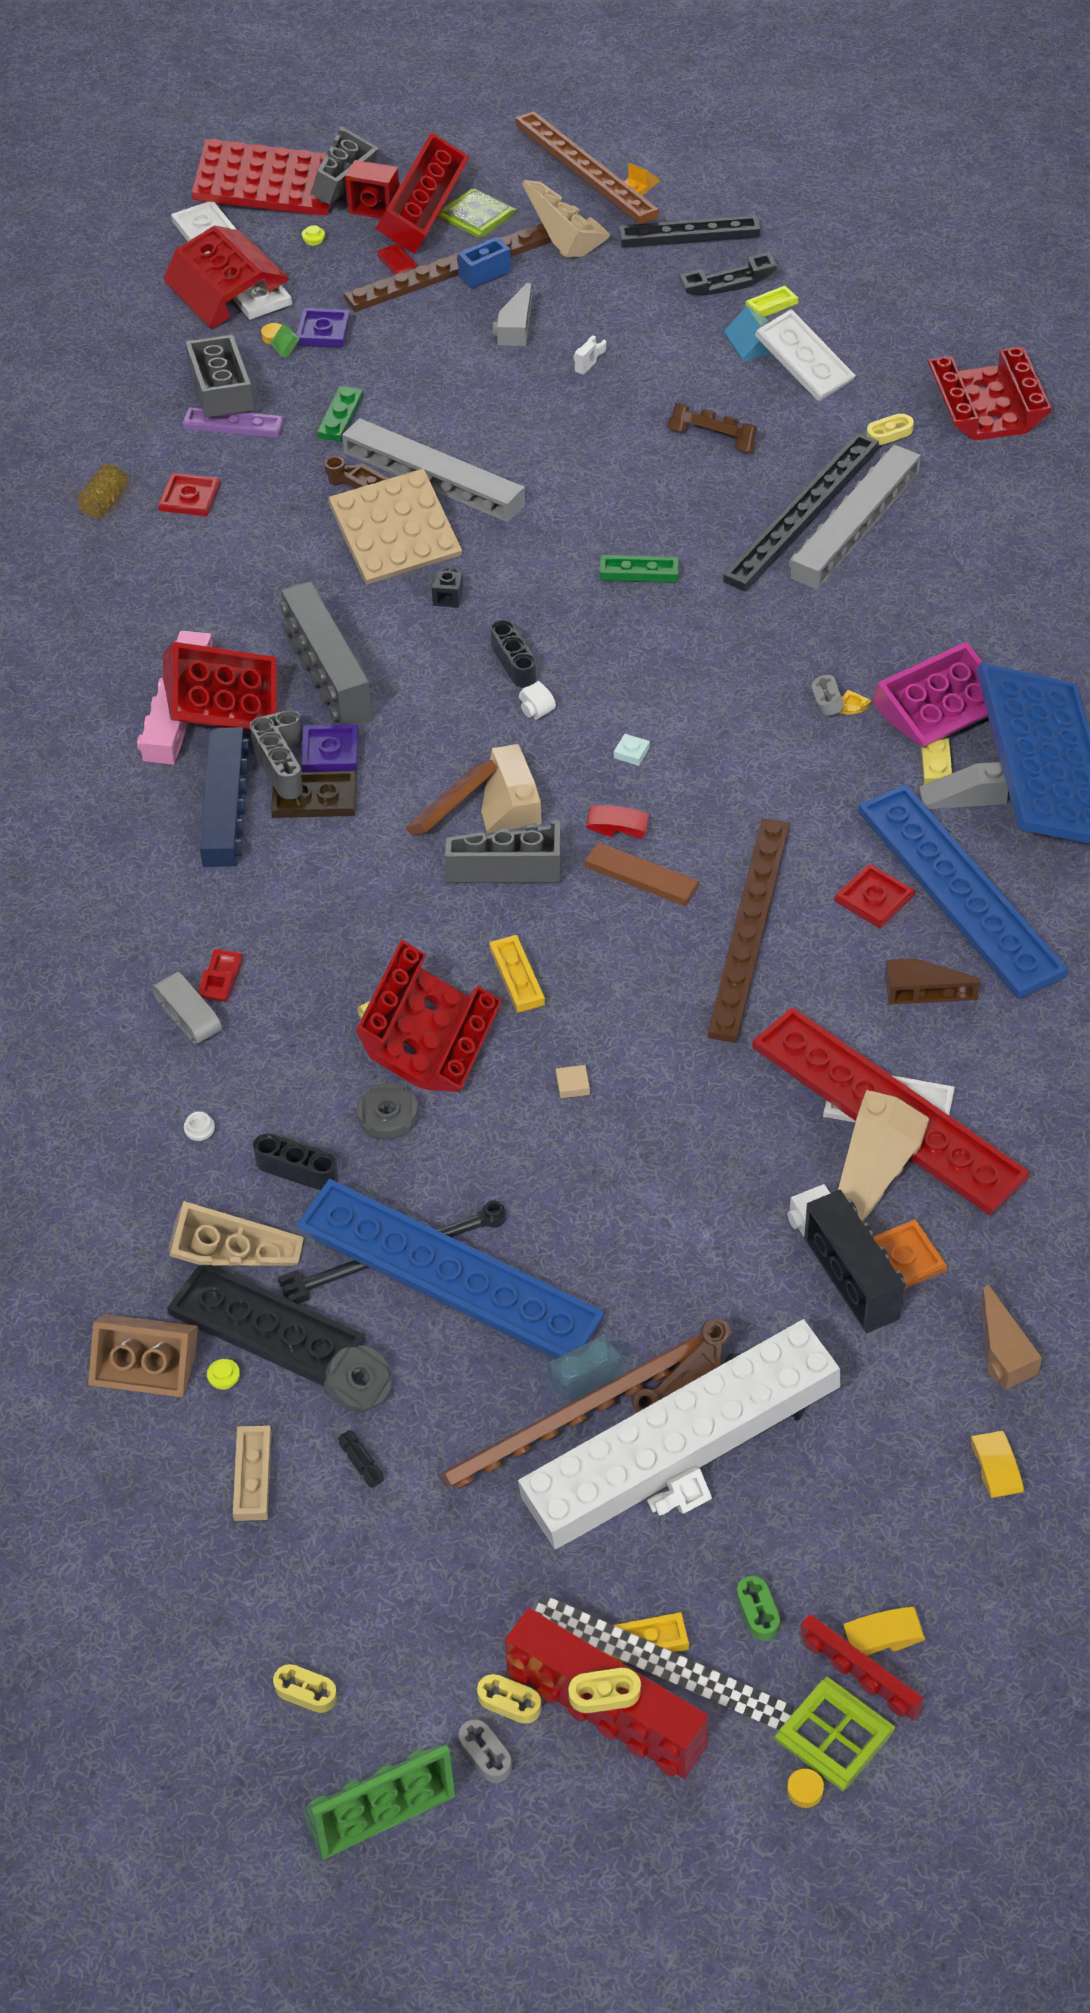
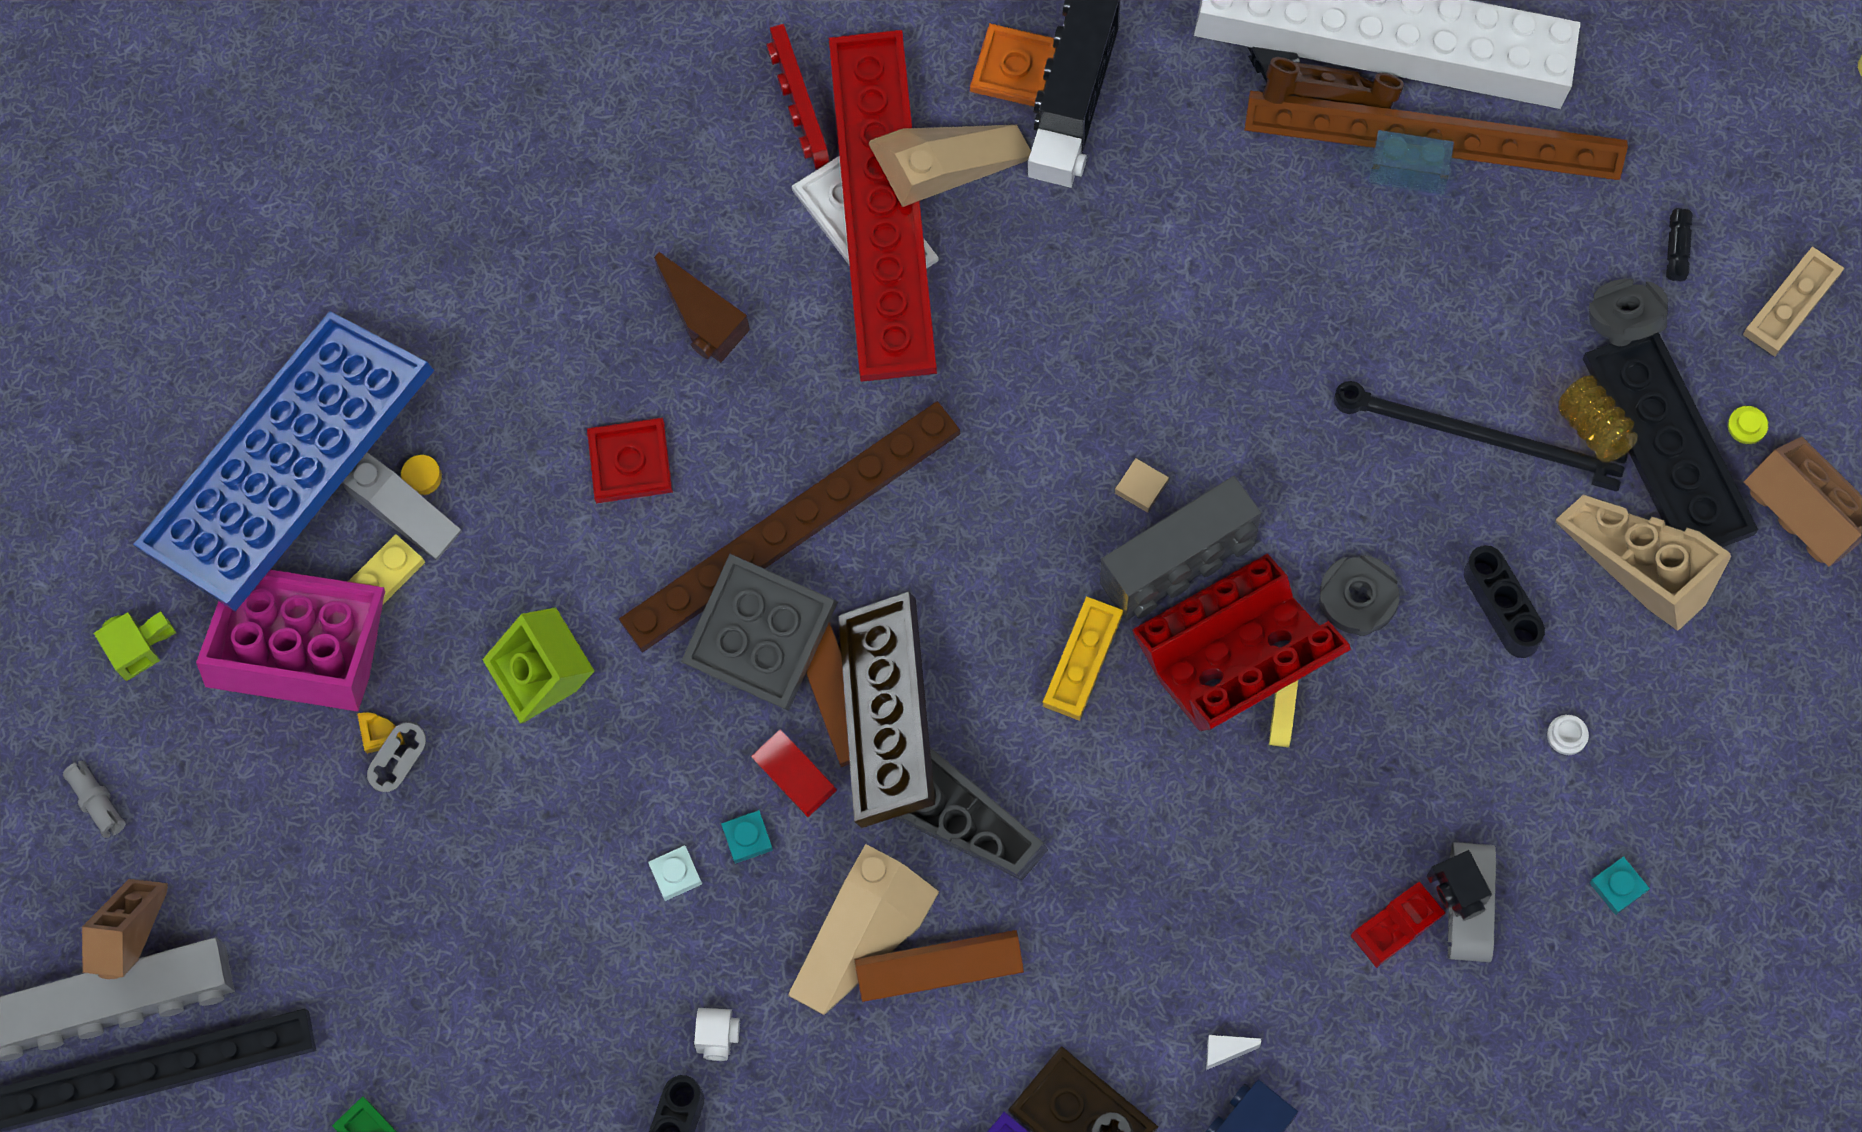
camera: 135 degrees left, 20 degrees up
(107, 1076) = (1619, 885): none -> teal plate
(196, 988) = (1461, 885): none -> black brick
(264, 865) = (1225, 1048): none -> white piece
(323, 1293) = (1597, 419): none -> clear yellow piece
(449, 1271) = (1455, 359): blue plate -> none
(510, 1045) = (1180, 549): none -> dark grey brick
(594, 859) = (886, 710): none -> plate
(612, 786) = (747, 837): none -> teal plate
(705, 858) = (759, 632): none -> dark grey plate
(804, 776) = (537, 663): none -> lime slope
(865, 543) = (120, 928): none -> medium nougat slope
(951, 589) = (94, 799): none -> light grey pin
(963, 891) = (541, 396): blue plate -> none
(975, 813) = (422, 474): none -> yellow tile
(1009, 1132) = (792, 84): none -> red plate
(1019, 646) = (130, 644): none -> lime brick

